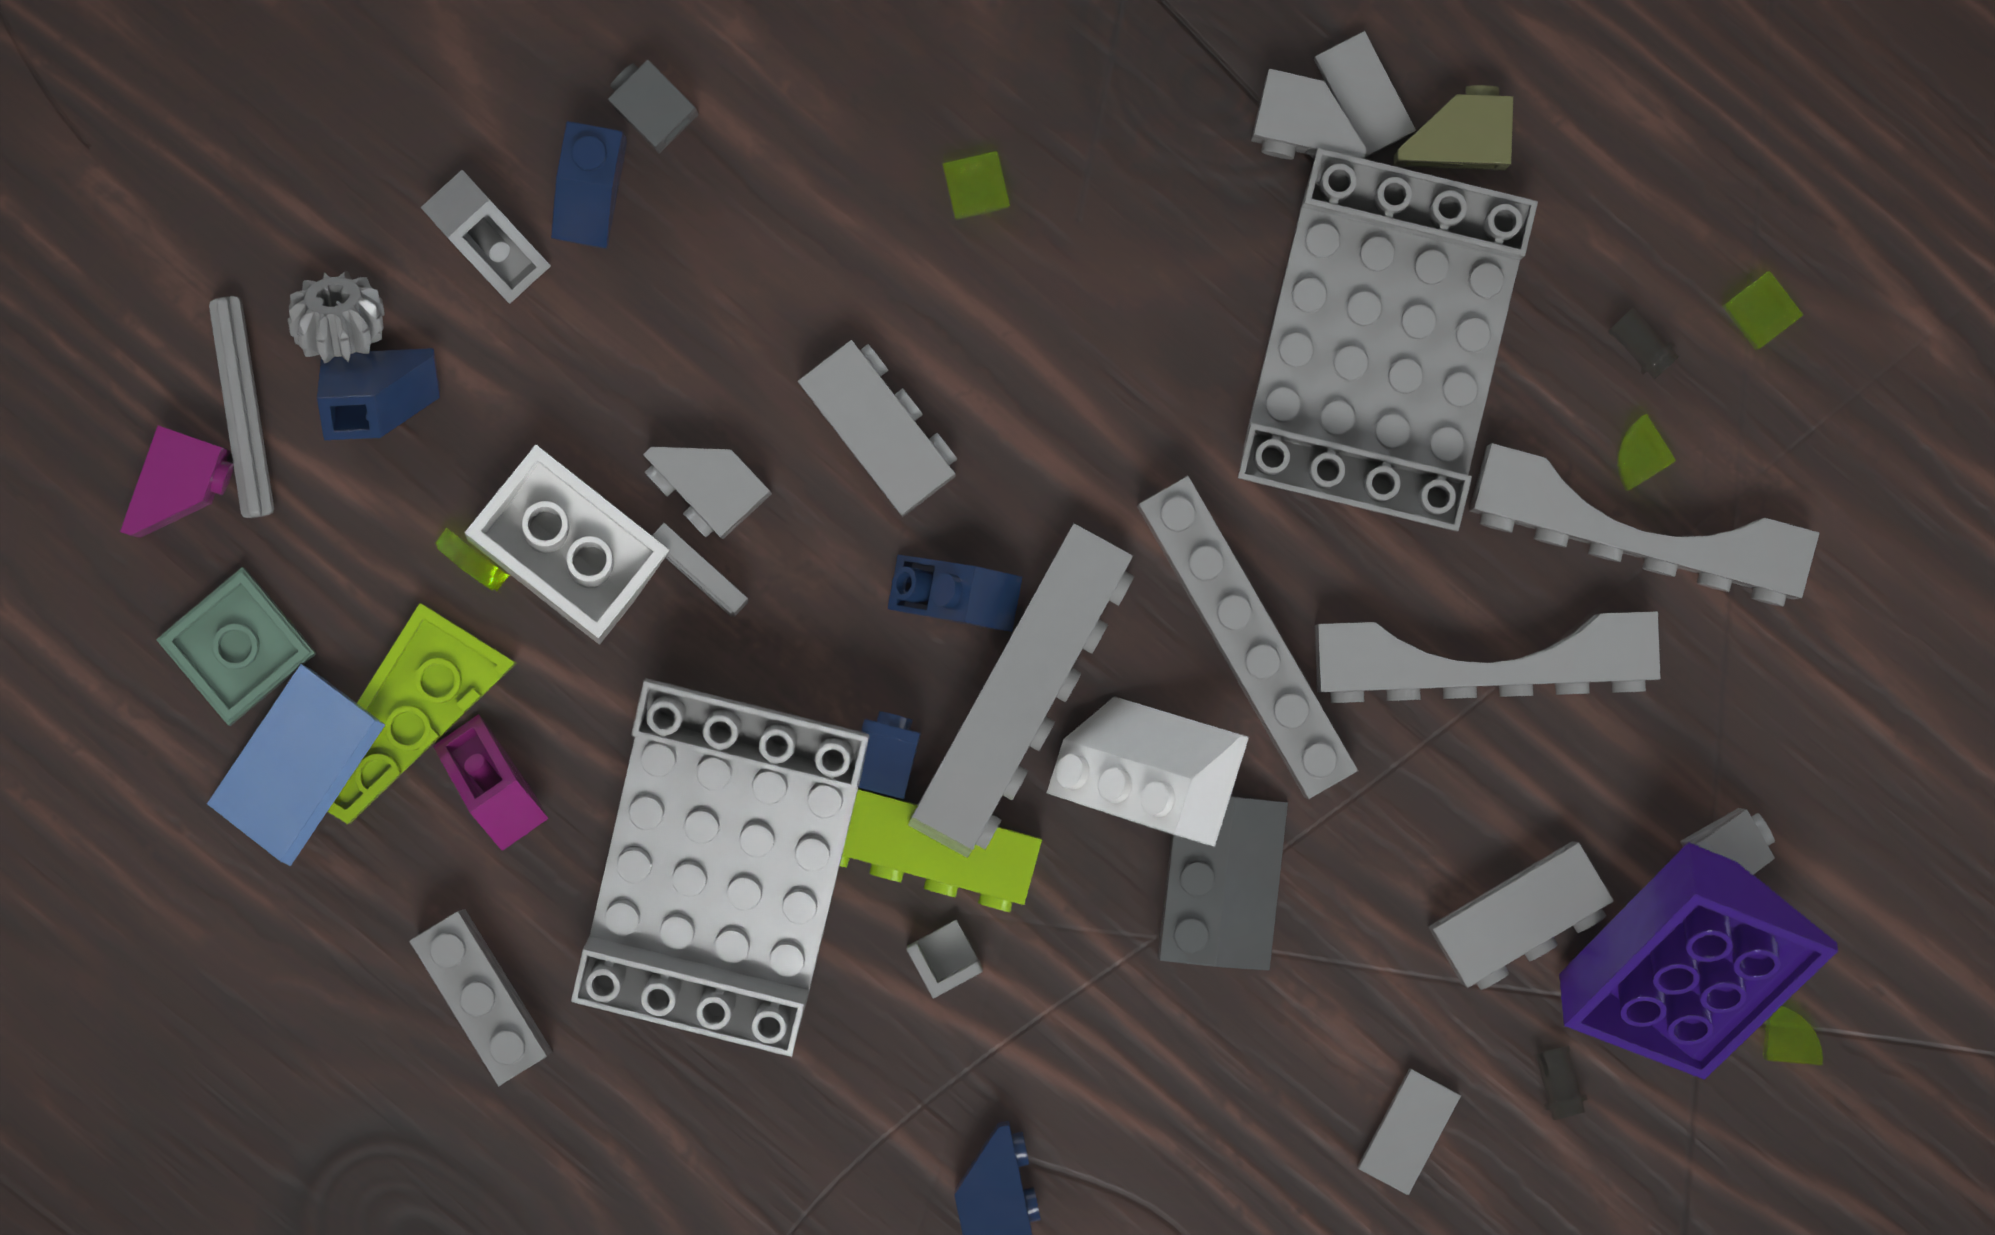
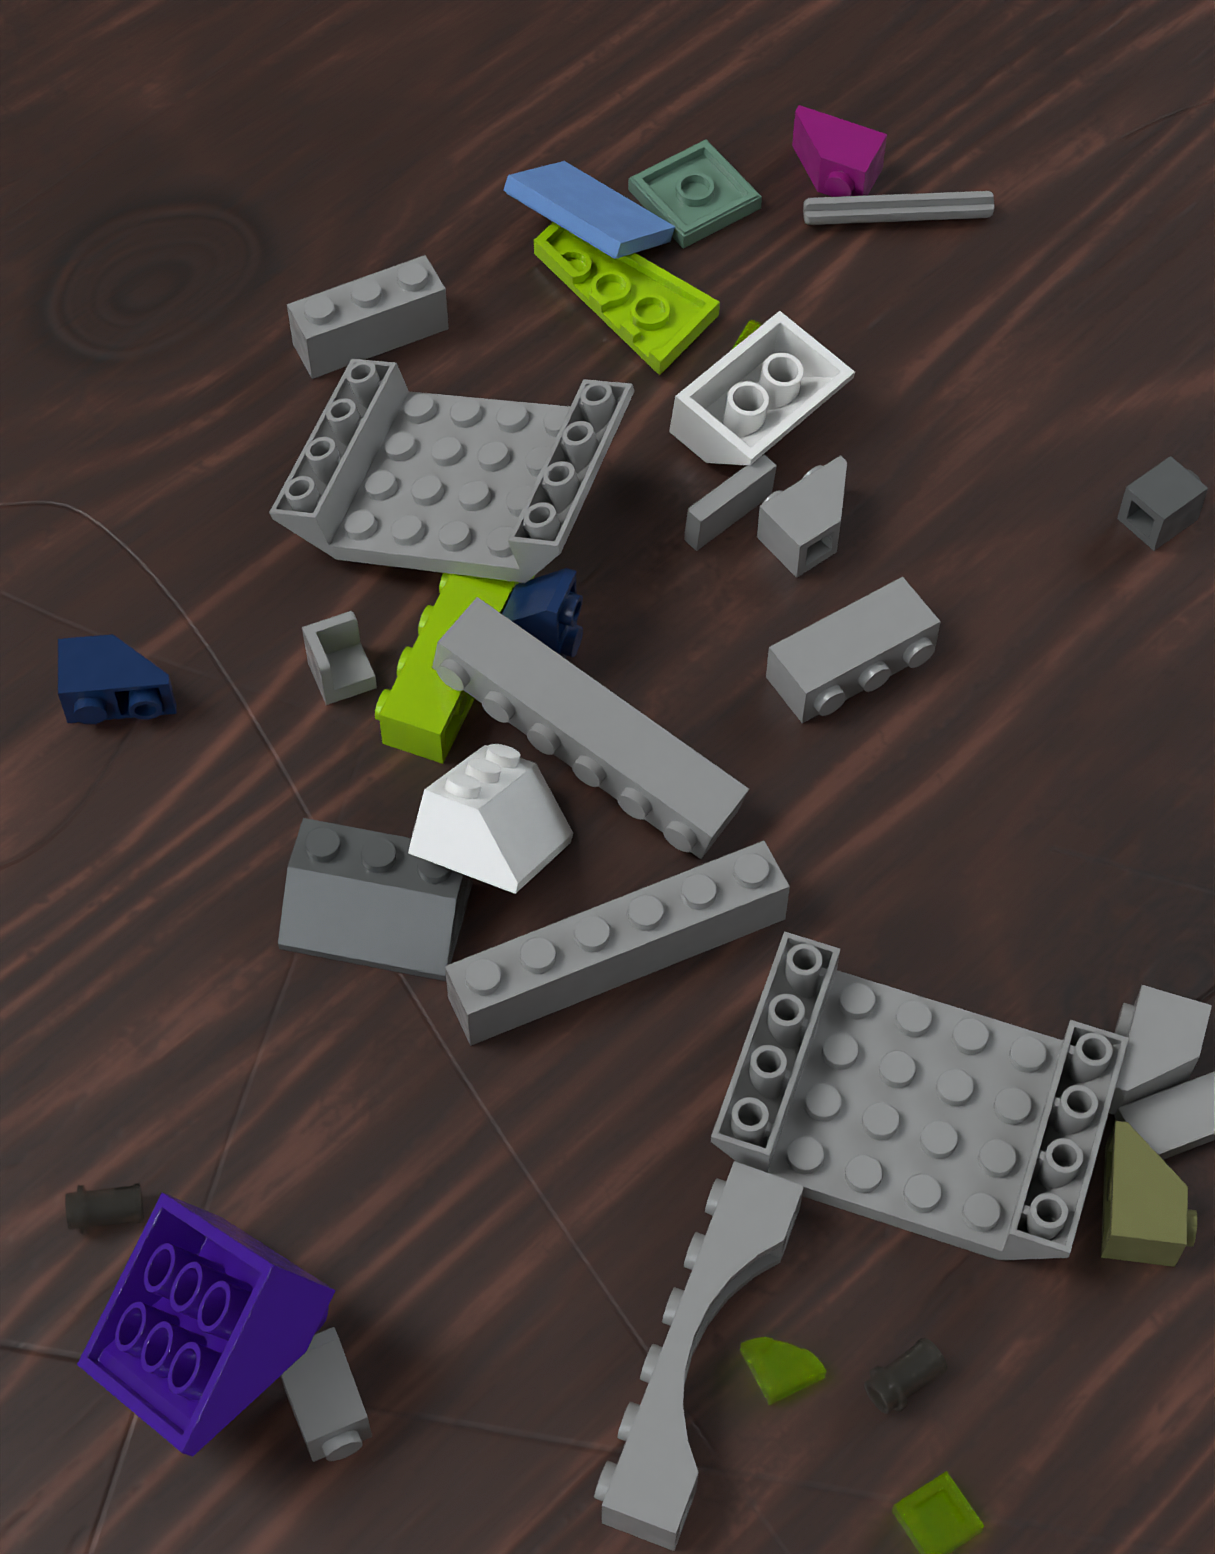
camera: 100 degrees right, 30 degrees down
(336, 317) = (974, 259): light grey gear -> none
(375, 391) = (907, 281): dark blue slope -> none
(485, 236) = (1042, 373): light grey slope -> none
(490, 783) = (552, 339): magenta slope -> none
(587, 184) = (1092, 450): dark blue slope -> none
(955, 592) = (690, 696): dark blue slope -> none
(976, 185) = (1087, 759): clear neon green tile -> none
(1409, 1131) = (86, 1057): light grey tile -> none
(1522, 916) = (289, 1179): light grey brick -> none
(1603, 649) = (567, 1289): light grey arch -> none
(1791, 1039) = (102, 1462): clear neon green tile -> none

